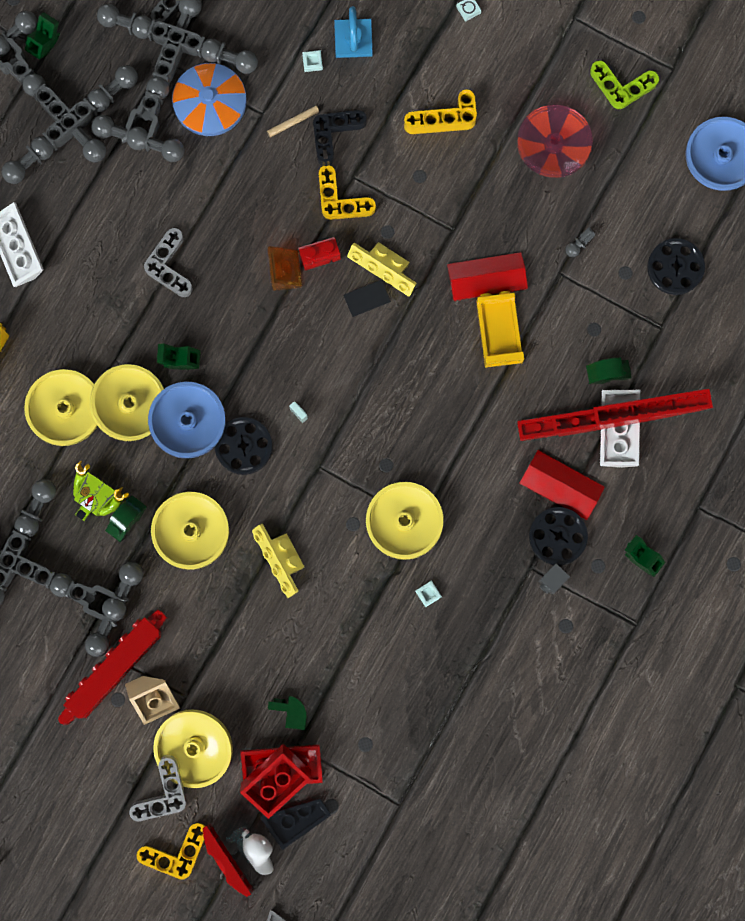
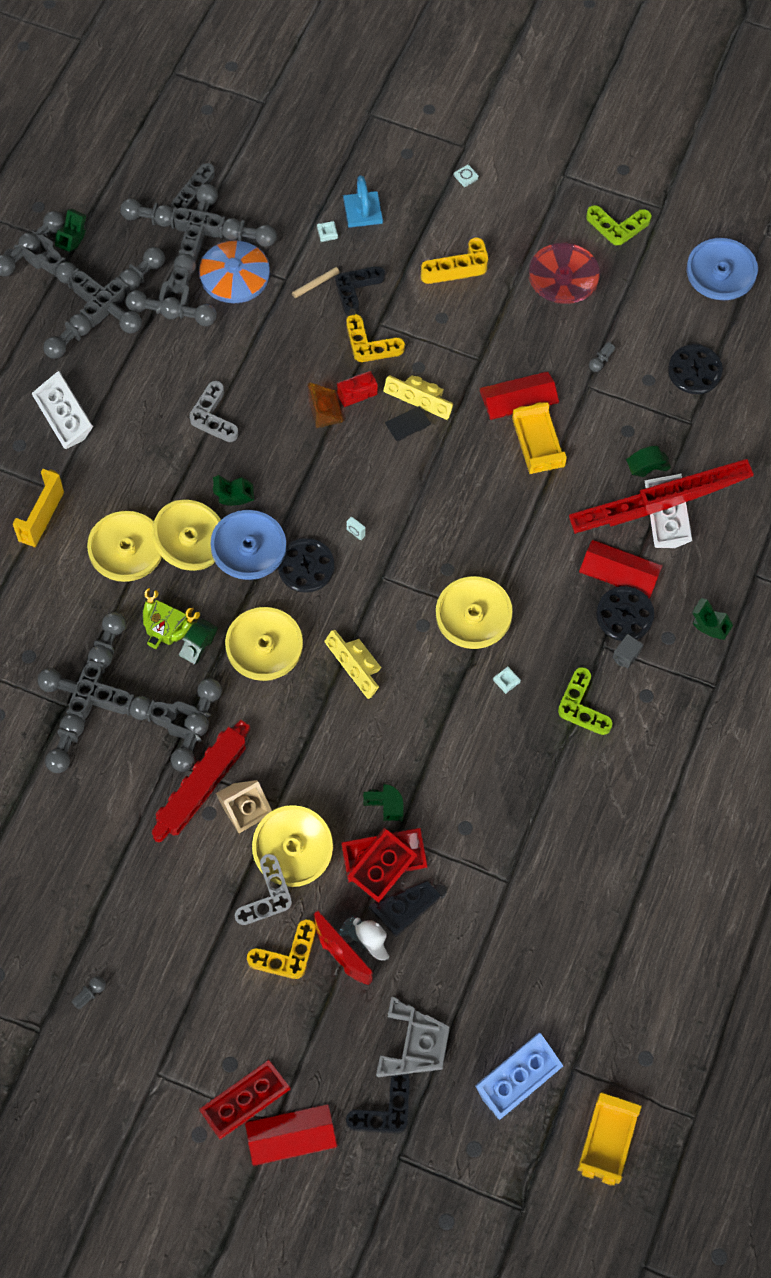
camera: 10 degrees left, 15 degrees down
(492, 628) = (574, 704): none -> lime beam

